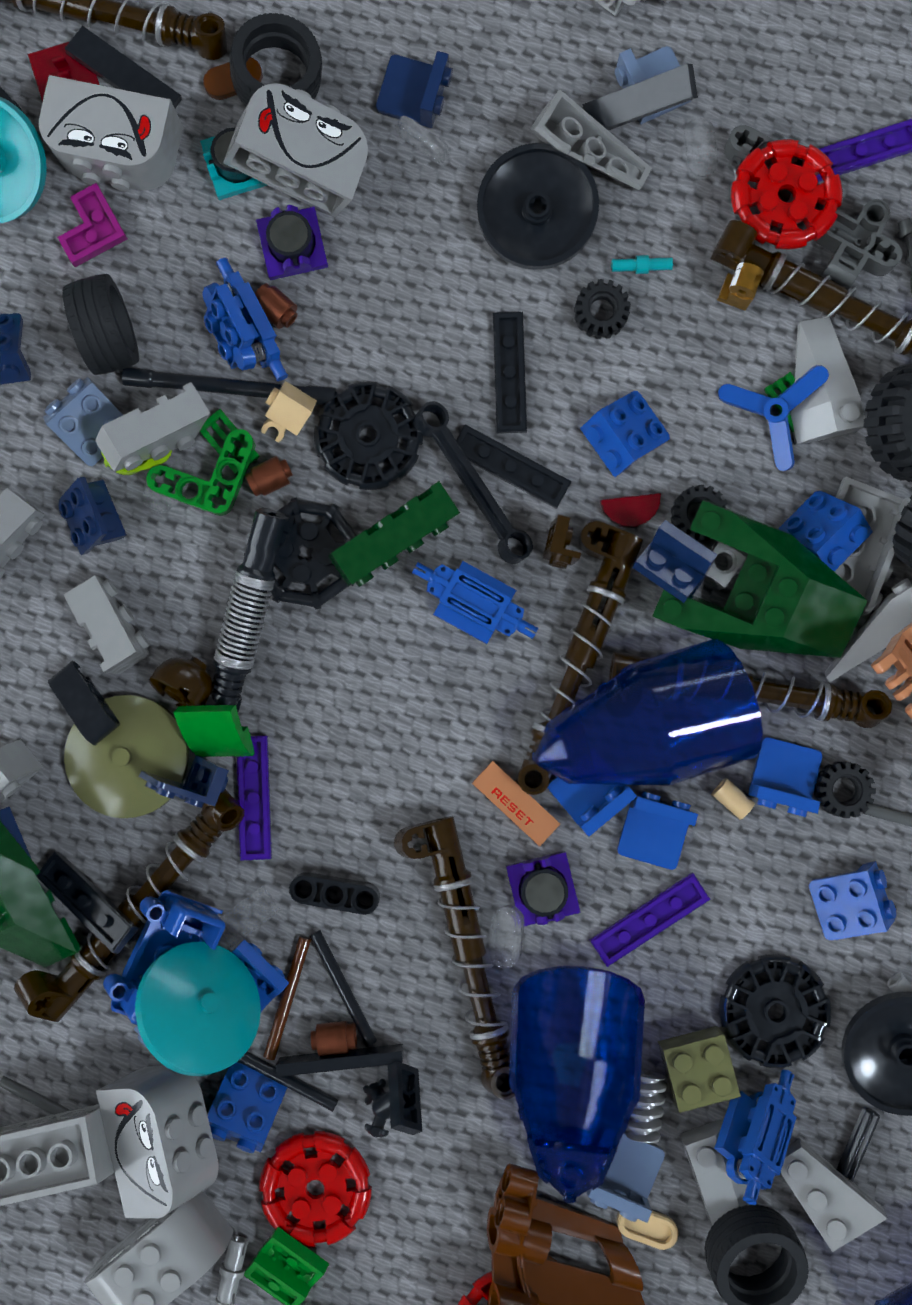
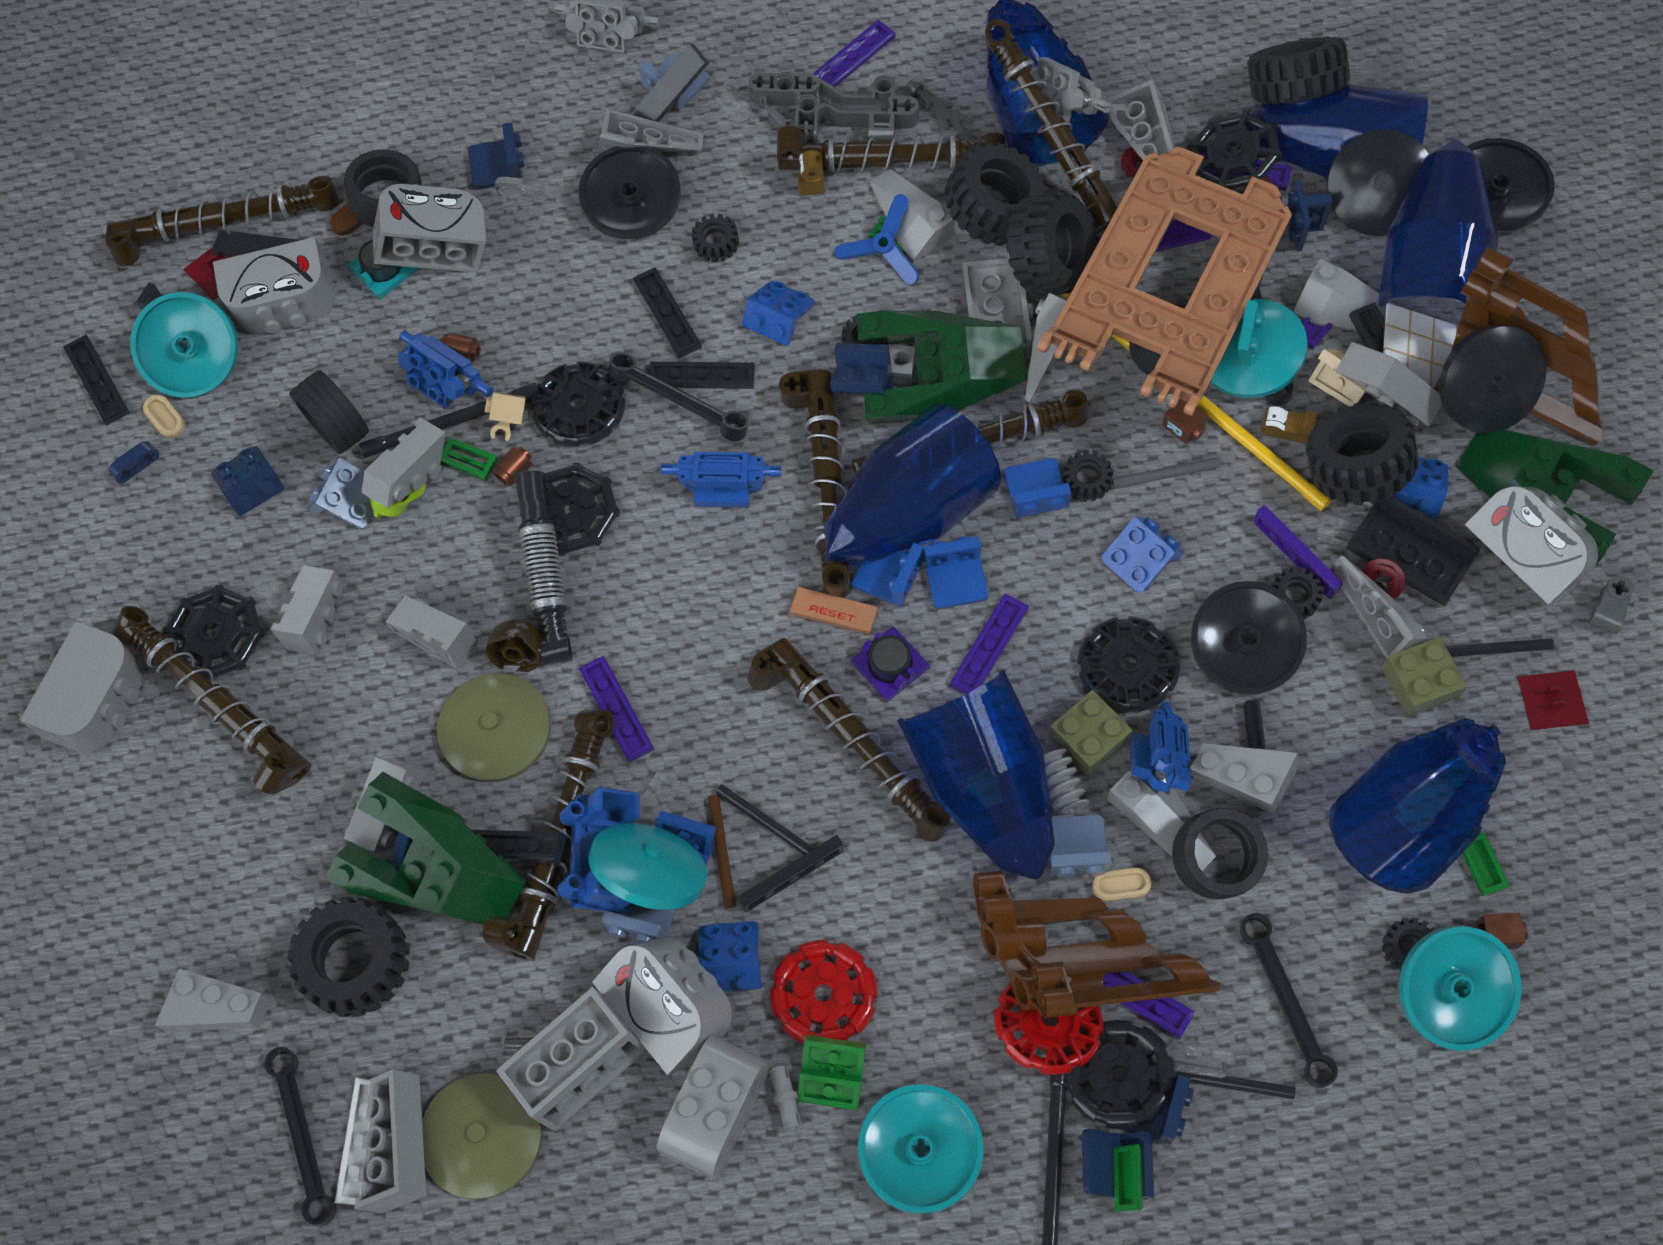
camera: 20 degrees left, 20 degrees down
(83, 703) = (440, 695): black beam -> none
(90, 515) = (378, 559): dark blue bracket -> none
(99, 230) = (293, 359): magenta plate -> none
(202, 784) = (557, 713): dark blue bracket -> none
(208, 490) = (469, 495): green beam -> none
(214, 731) = (559, 663): green slope -> none
(289, 1081) = (750, 917): black bar -> none
(291, 240) = (451, 300): piece -> none
(320, 896) = (705, 742): black beam -> none
(334, 1038) = (776, 858): copper brick -> none
(393, 534) = (634, 454): dark green wedge -> none
(399, 1104) = (856, 870): black piece -> none
(506, 936) = (879, 712): clear tile -> none
(558, 537) = (769, 407): dark brown bracket -> none
(632, 510) = (813, 359): dark red tile -> none
(641, 264) = (729, 197): teal bar -> none
(733, 798) = (1004, 524): tan piece -> none
(799, 181) = (812, 88): red plate -> none
(828, 528) = (971, 296): blue bracket -> none

